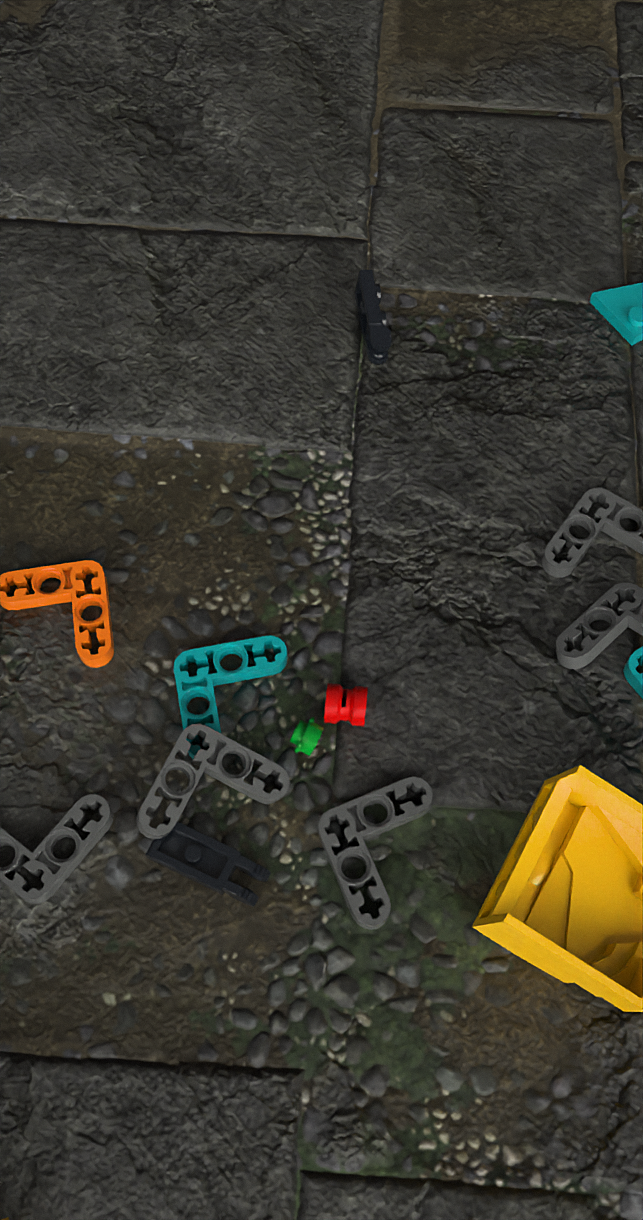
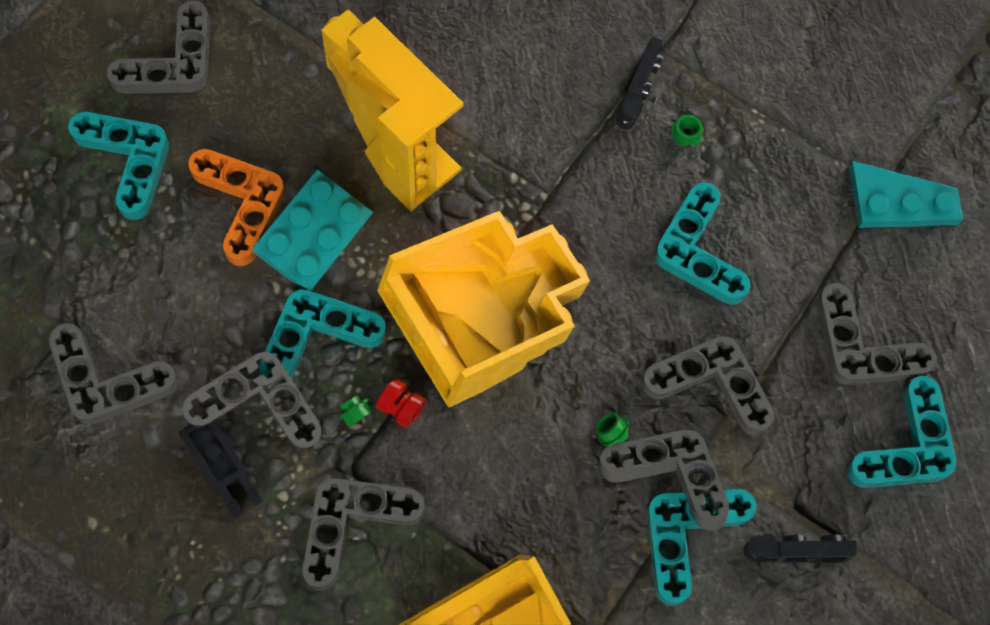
camera: 25 degrees right, 5 degrees up
(157, 595) = (312, 231): none -> teal plate
(171, 429) = (393, 105): none -> yellow panel
(360, 573) = (482, 301): none -> yellow panel
(438, 336) = (688, 123): none -> green plate
(503, 432) = (685, 245): none -> teal beam
(550, 621) = (612, 429): none -> green plate

